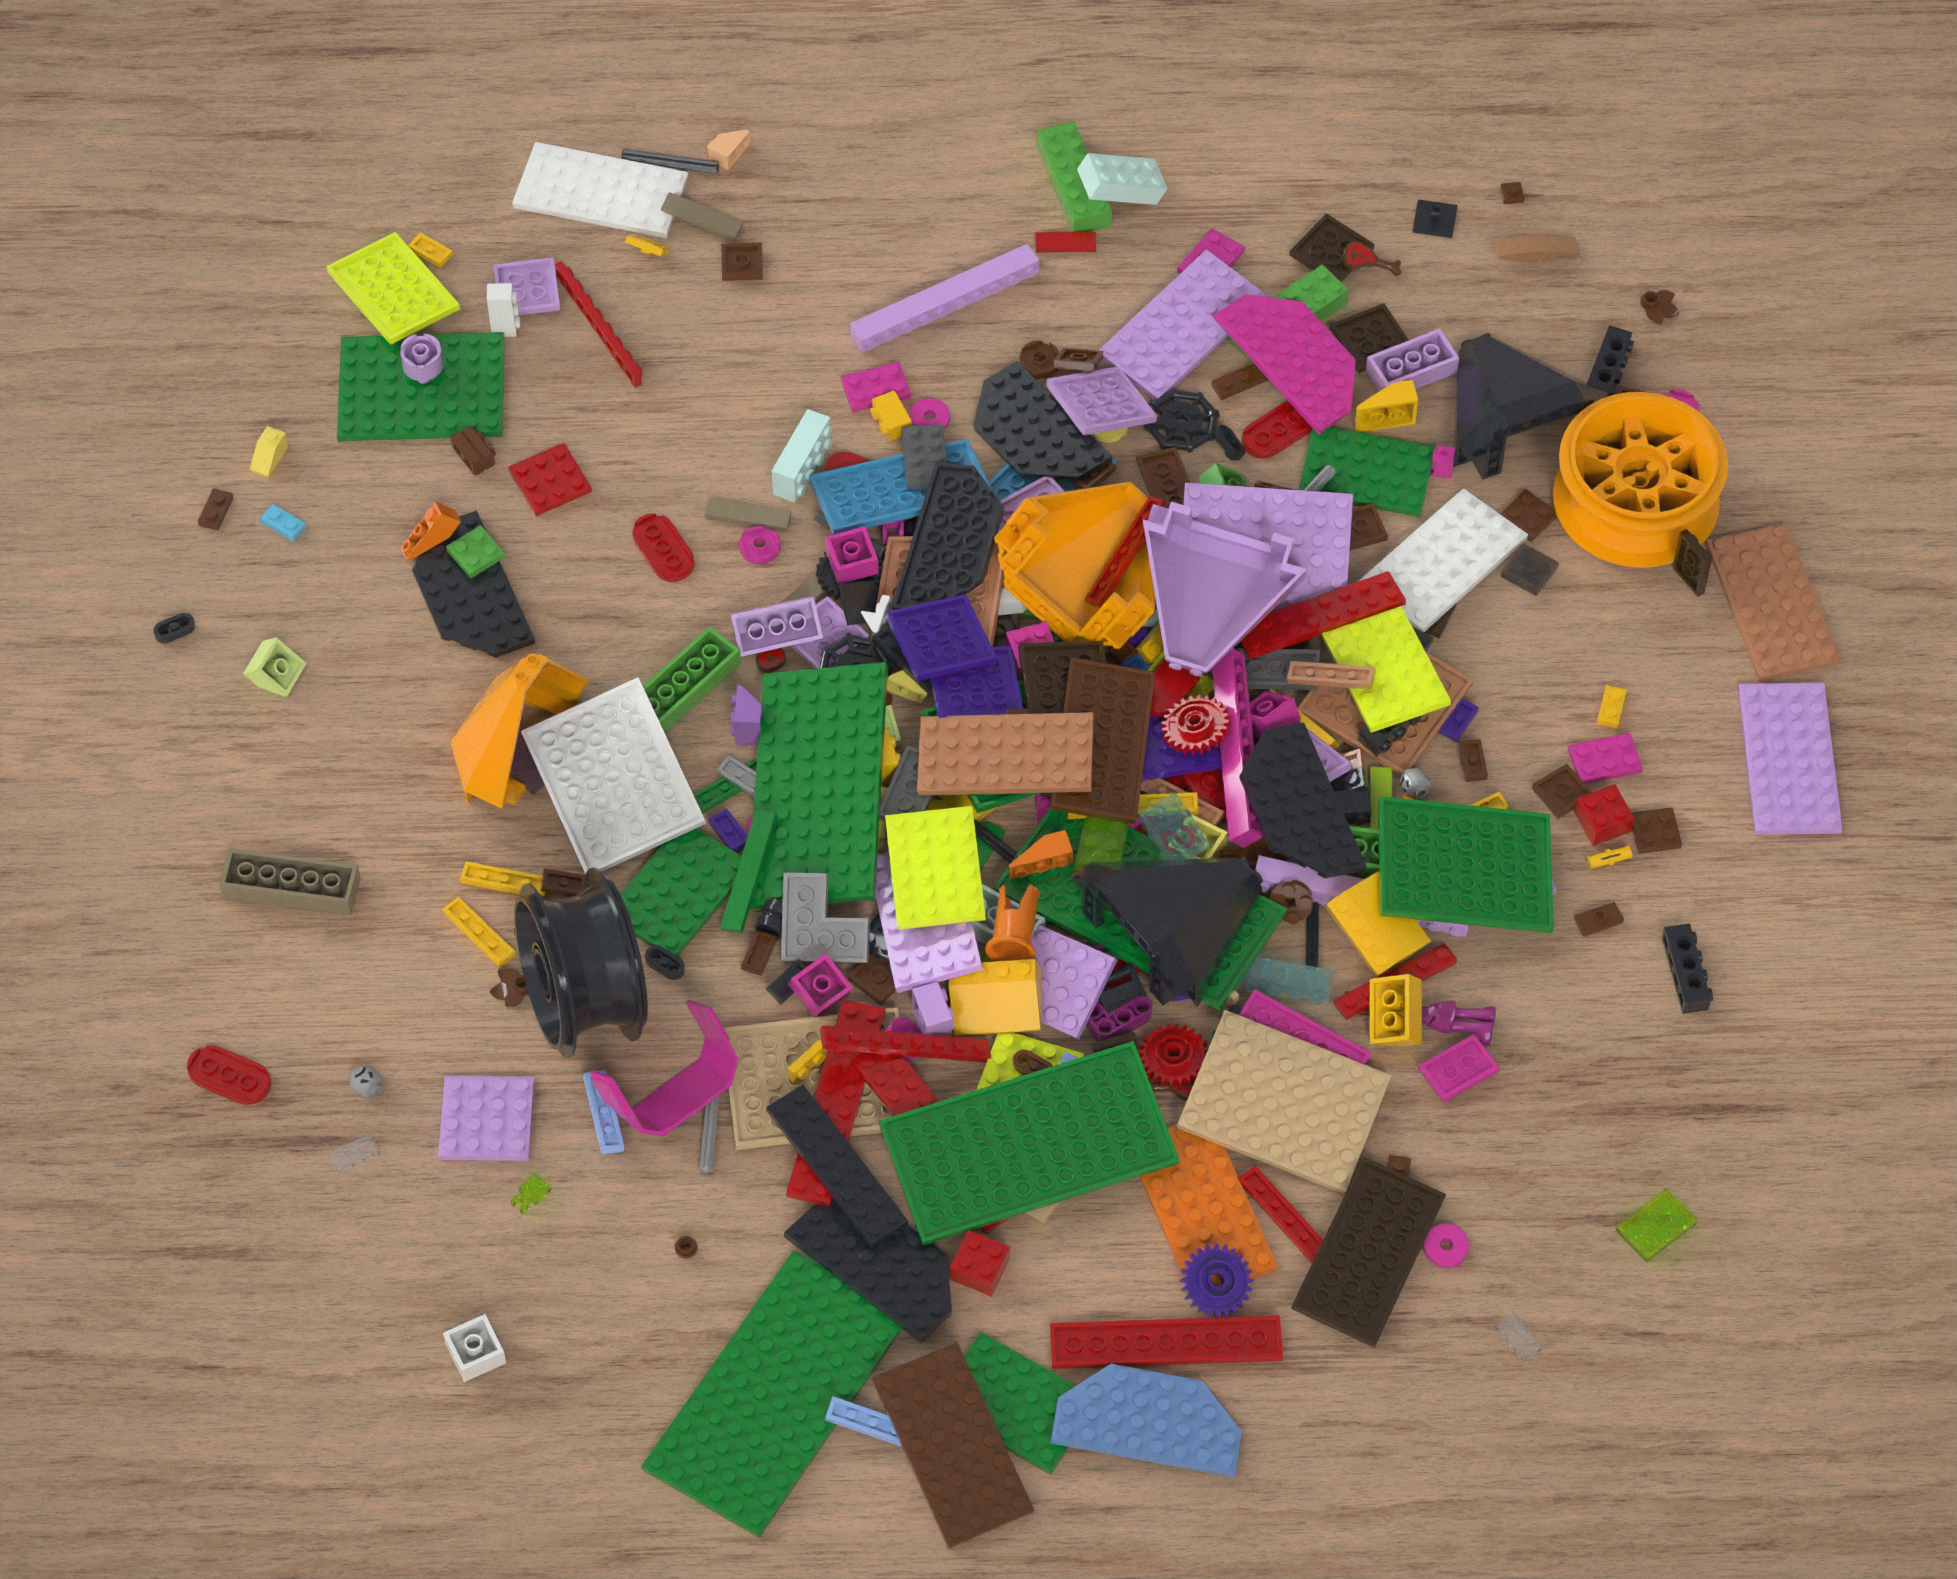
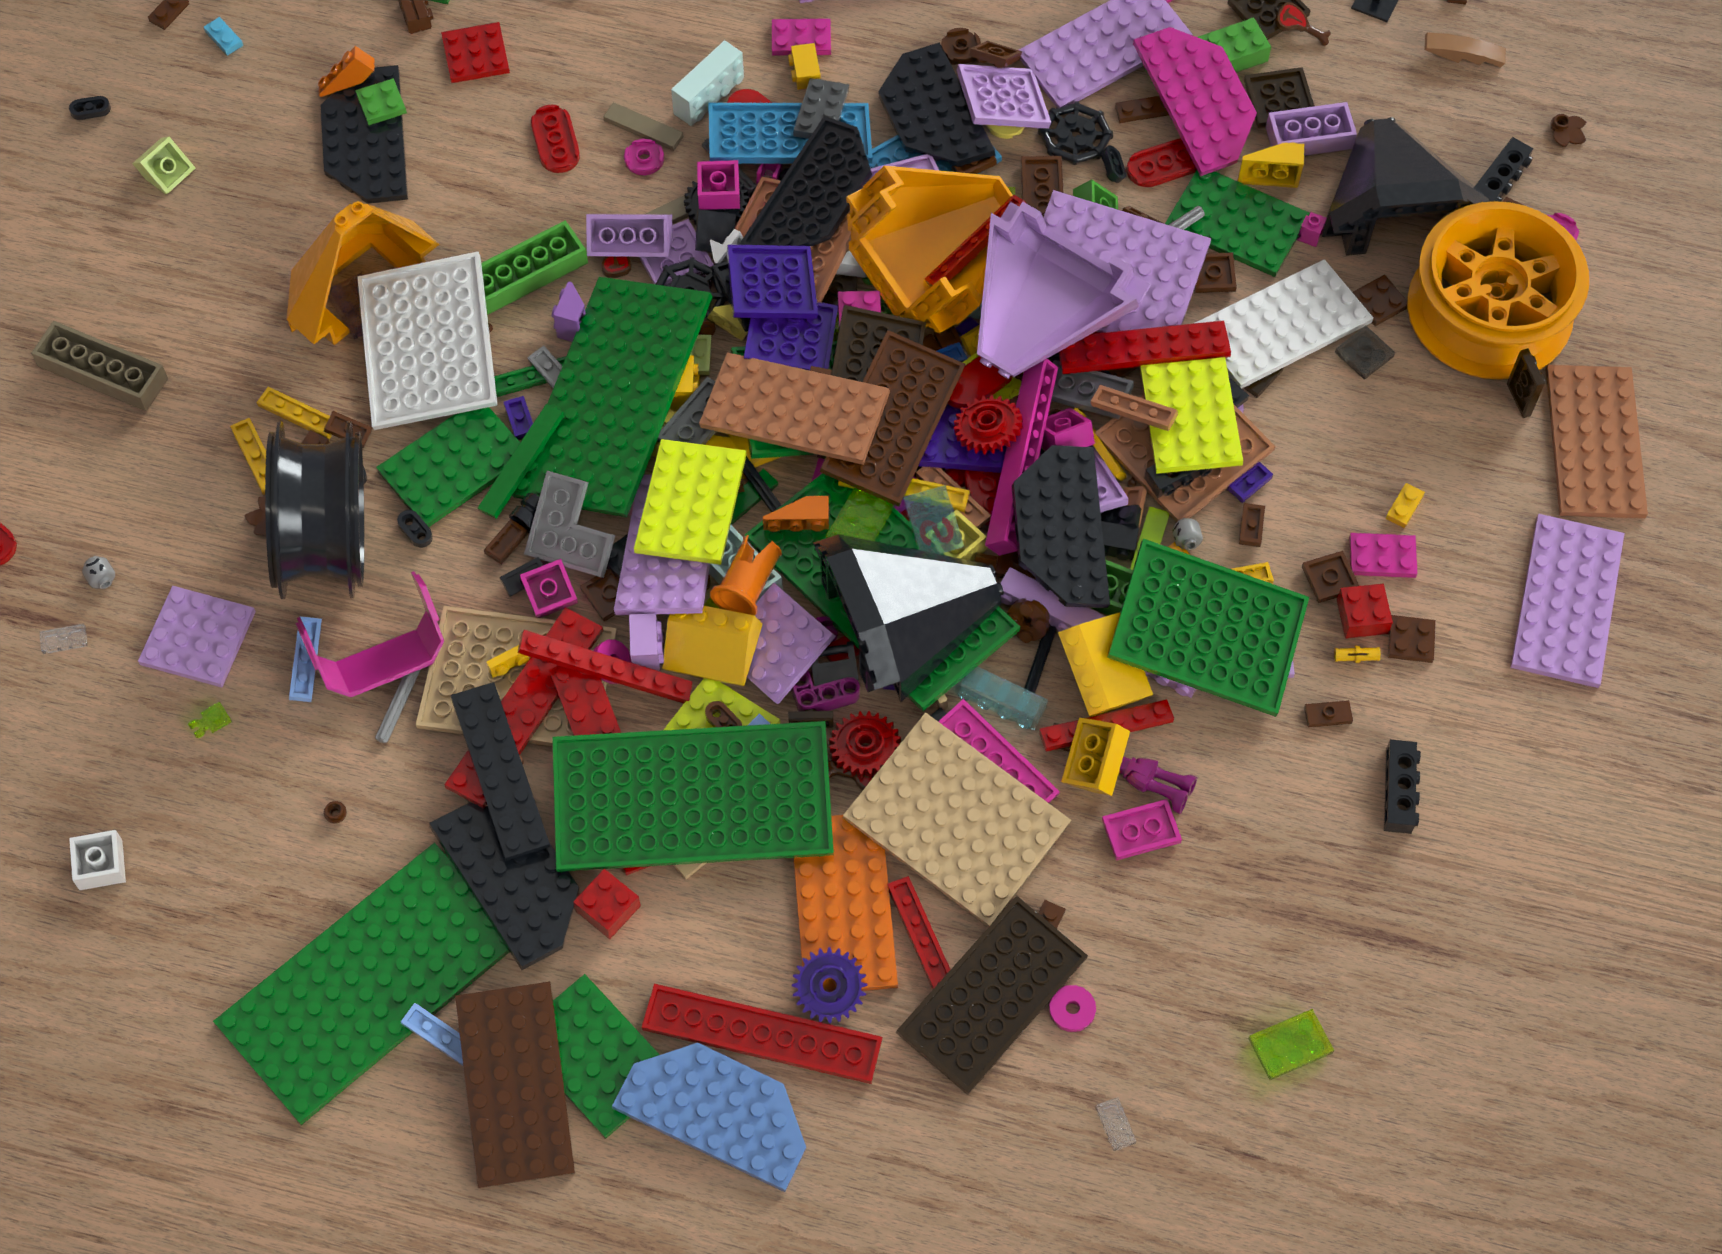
camera: 15 degrees right, 5 degrees up
(930, 407) = (842, 66): dark pink tile -> none

